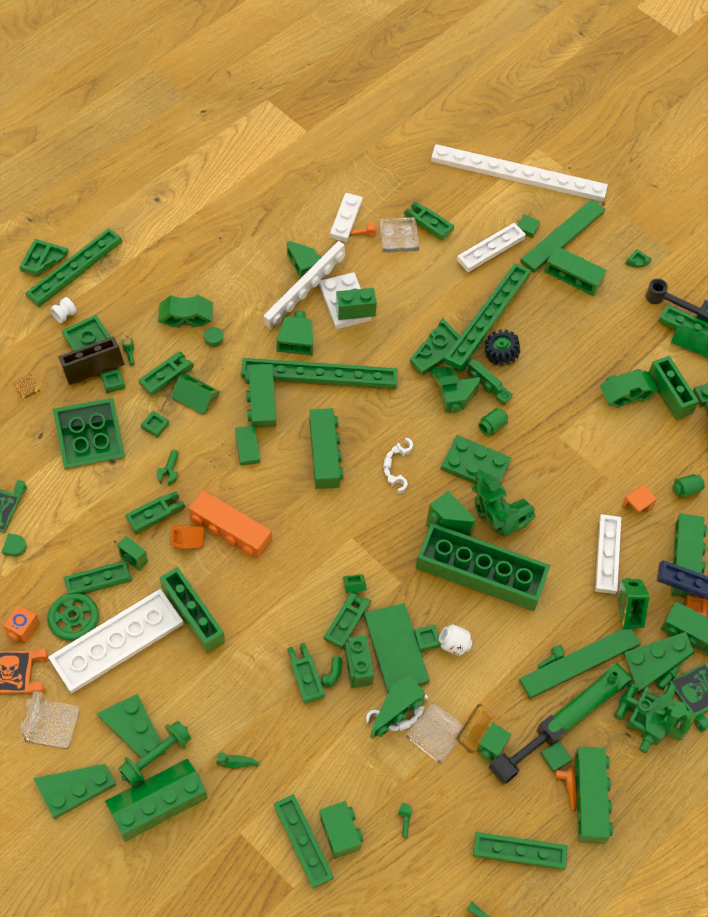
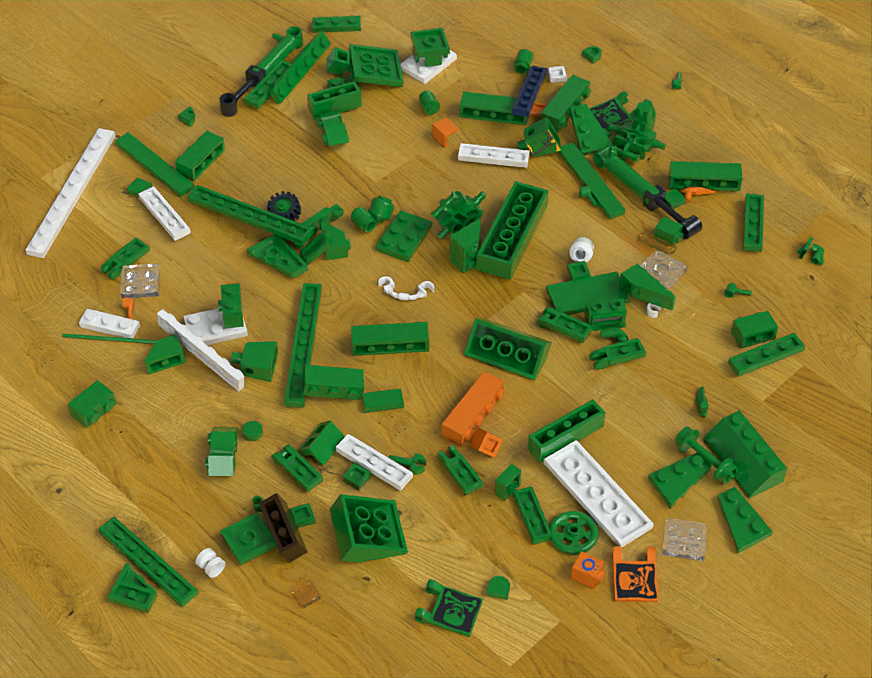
camera: 85 degrees left, 10 degrees down
(168, 437) = (374, 462): none -> white plate
(245, 210) = (92, 404): none -> green brick
(313, 559) = (507, 348): none -> green slope
(329, 219) = (109, 338): none -> green axle
(354, 583) = (530, 318): green tile -> none
(507, 436) = (381, 208): none -> green head

